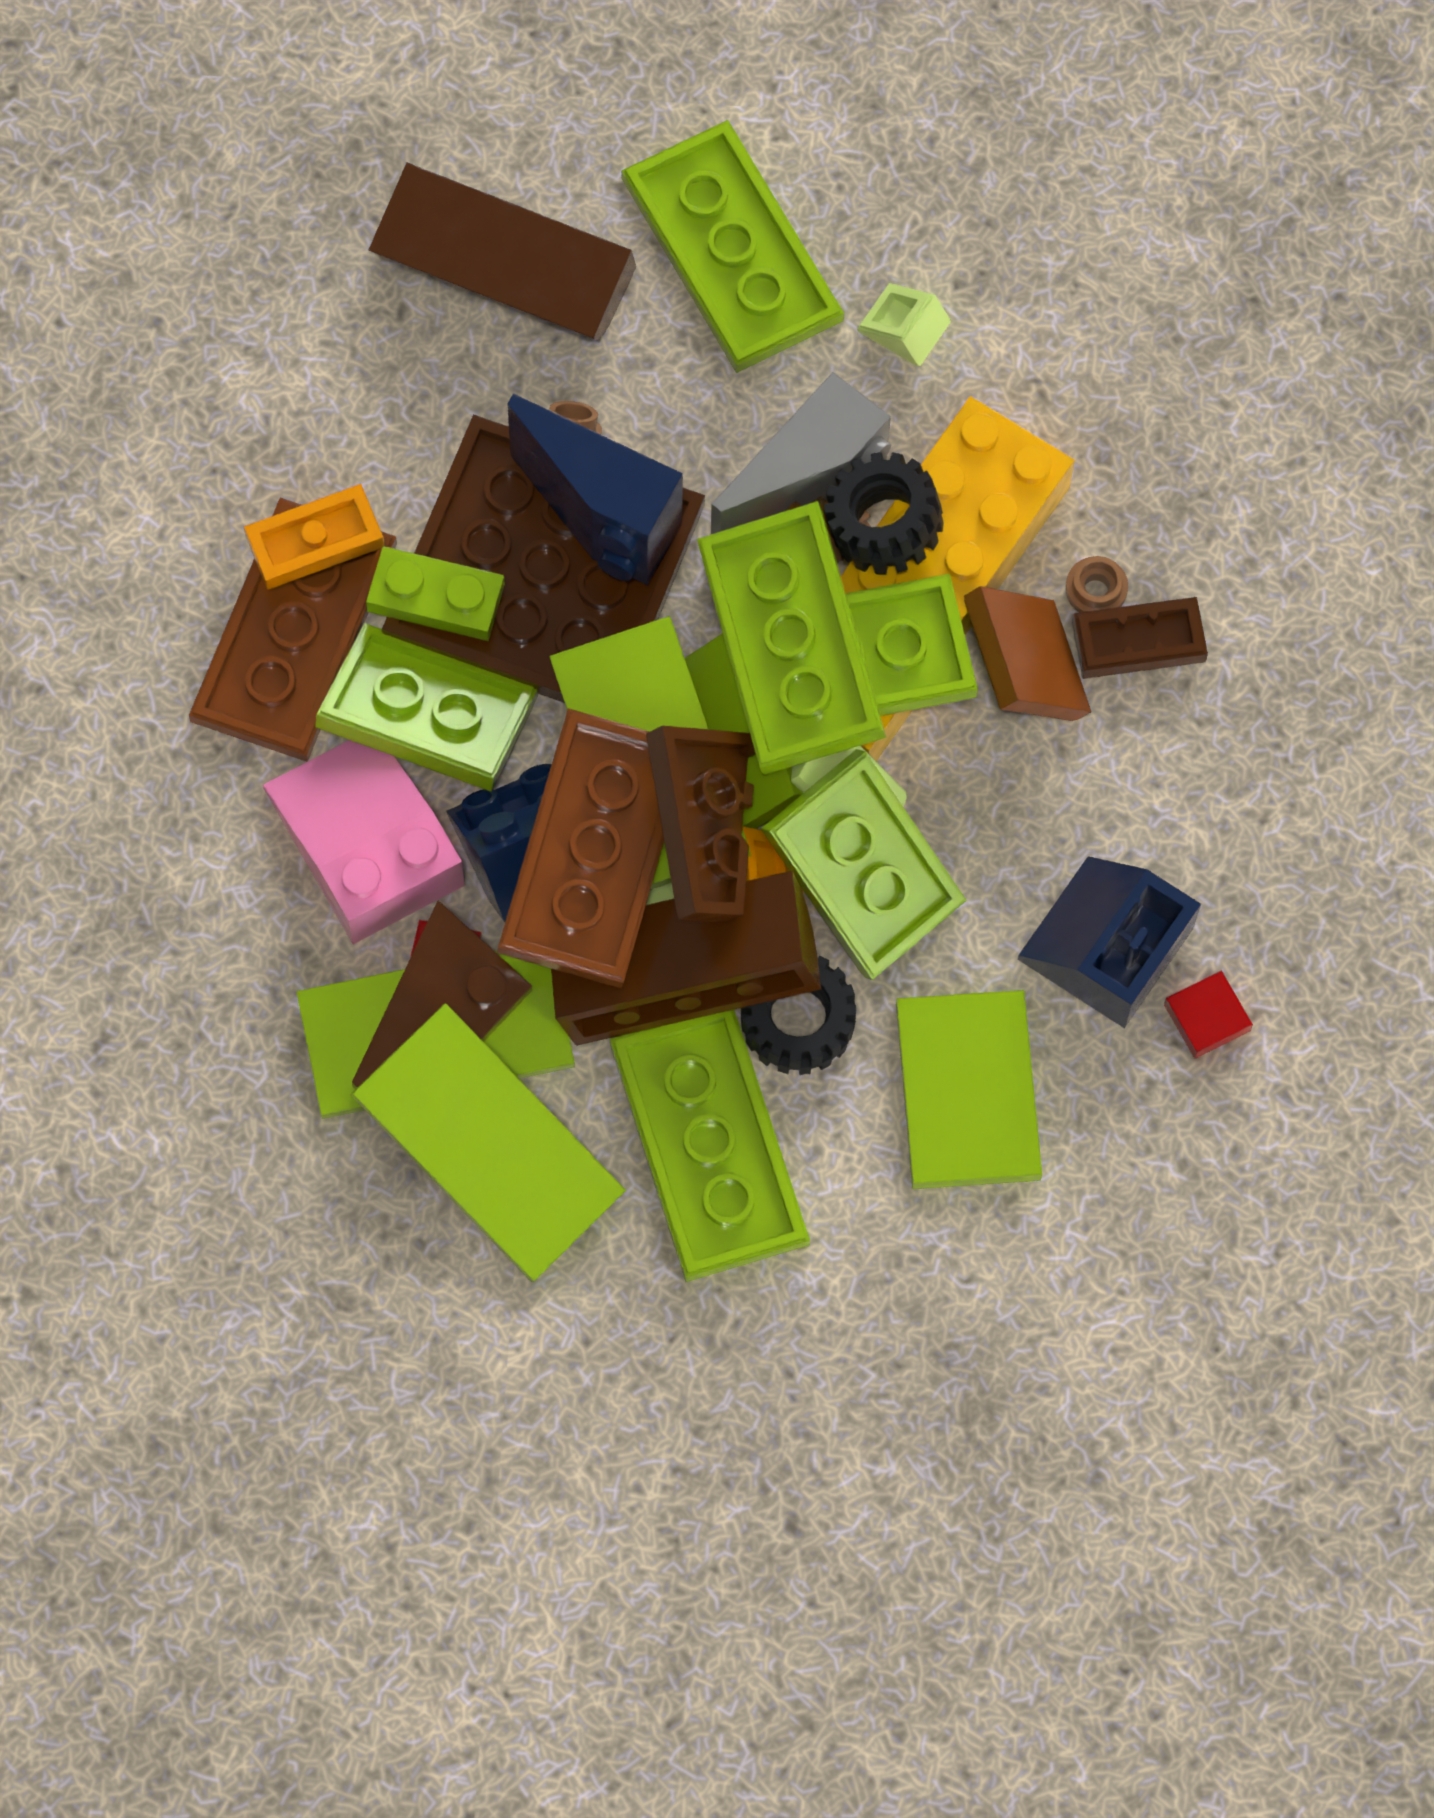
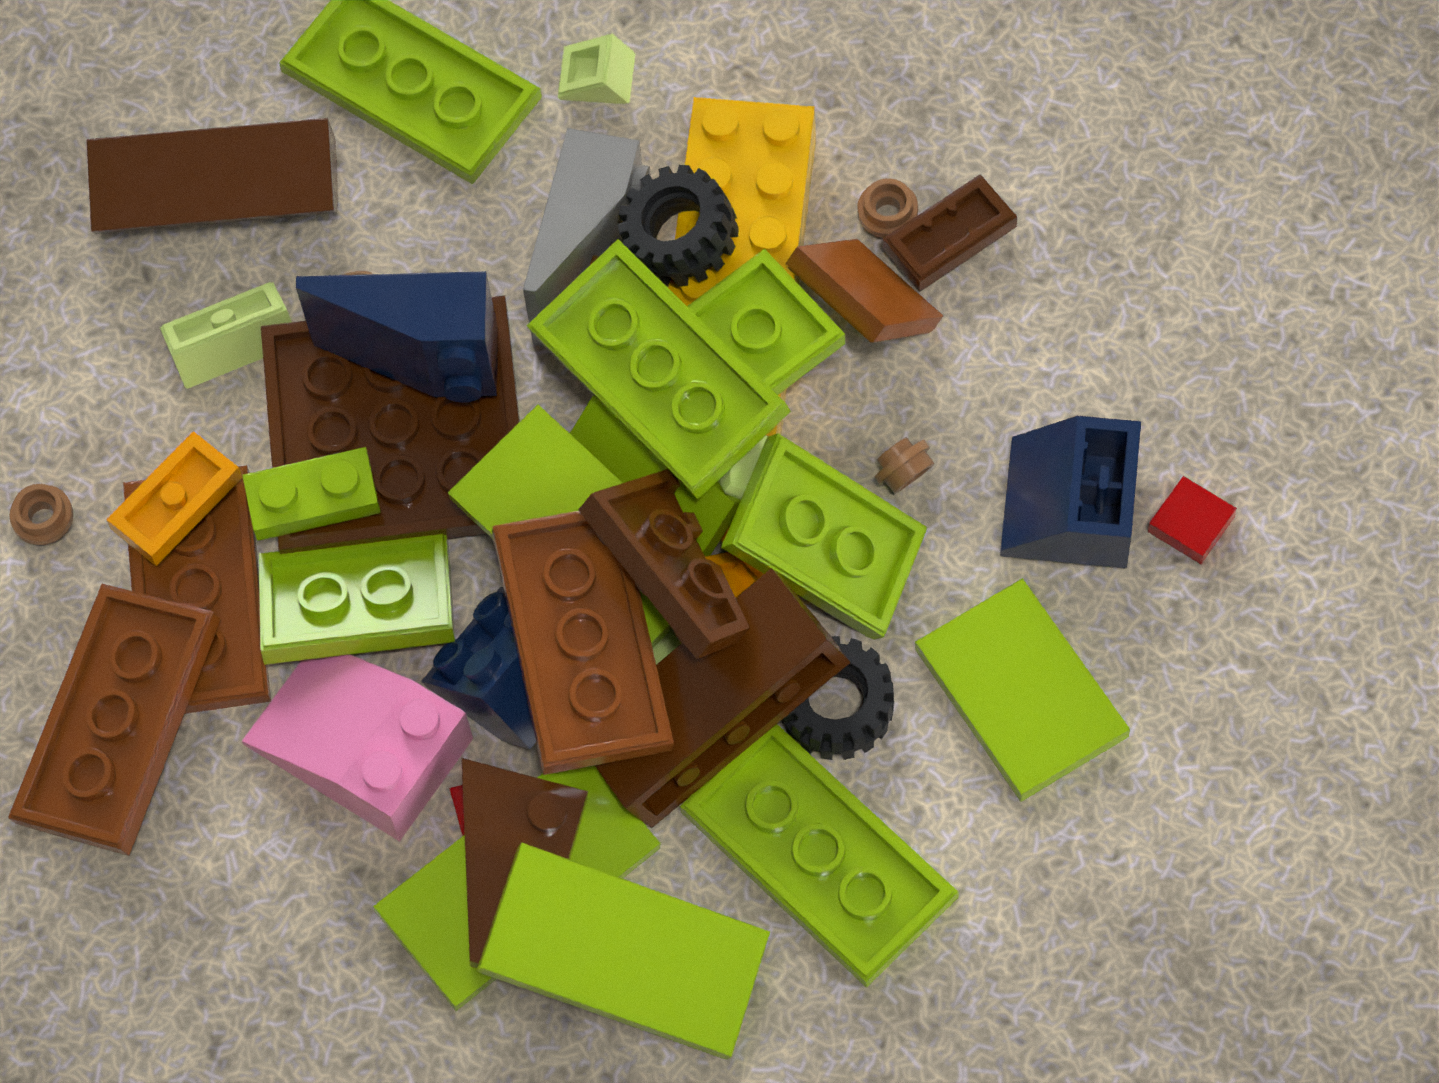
camera: 20 degrees left, 5 degrees down
(162, 709) = (115, 719): none -> dark orange tile
(194, 473) = (37, 498): none -> medium nougat plate
(439, 403) = (223, 334): none -> yellowish green slope
(976, 832) = (903, 464): none -> medium nougat plate

